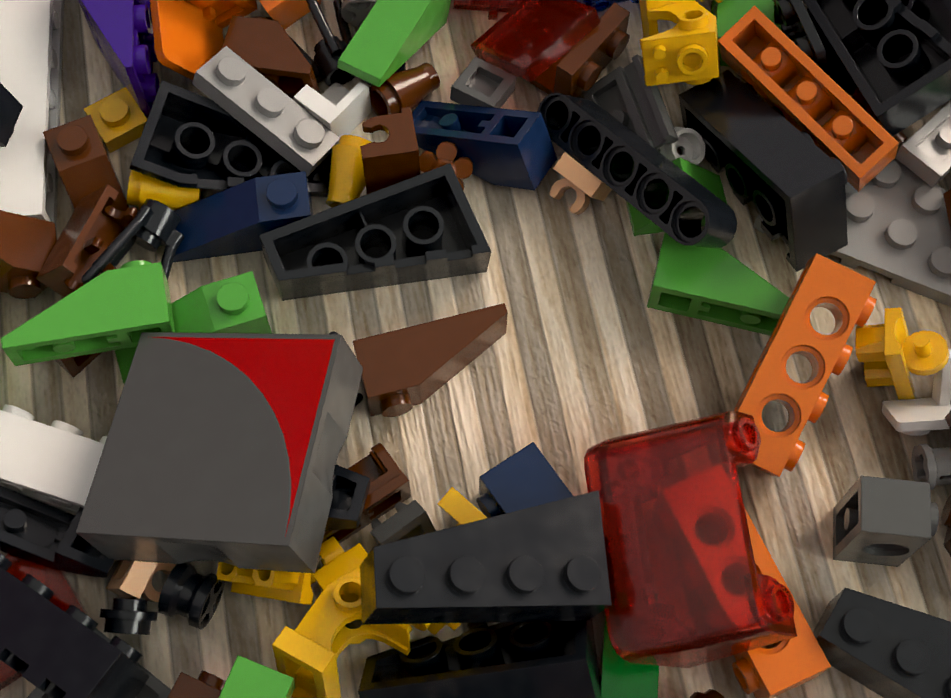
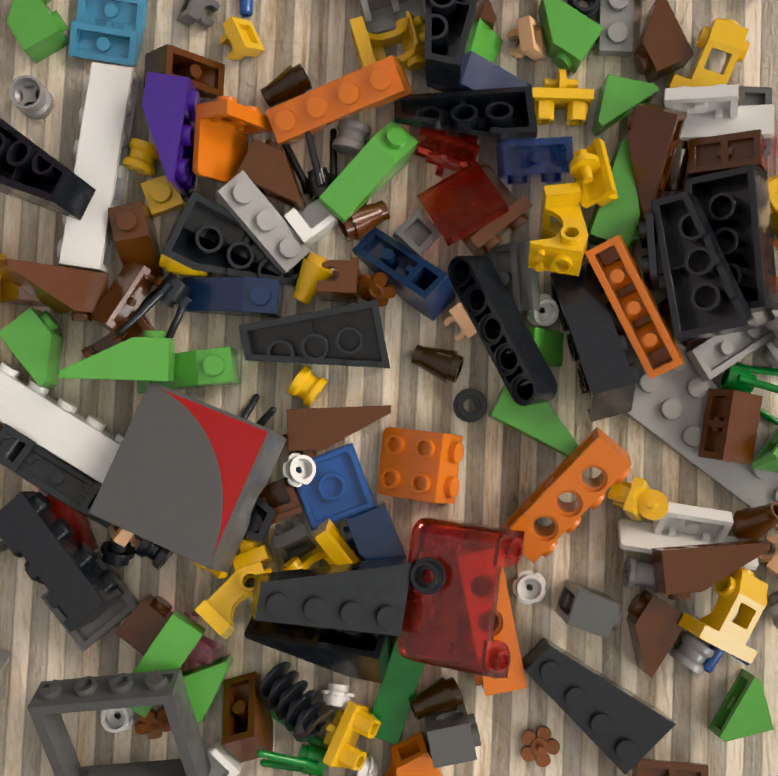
camera: 15 degrees right, 20 degrees up
(81, 75) = (141, 157): none -> yellow wheel
(374, 311) = (307, 386): none -> yellow wheel
(390, 423) = (307, 468): none -> white plate
(443, 446) = (336, 489): none -> blue tile
(557, 244) = (439, 362): none -> dark brown cone
(568, 384) = (420, 465): none -> orange bracket
(617, 493) = (418, 579): none -> black plate
(619, 280) = (477, 397): none -> black plate
(793, 517) = (529, 596): none -> white plate

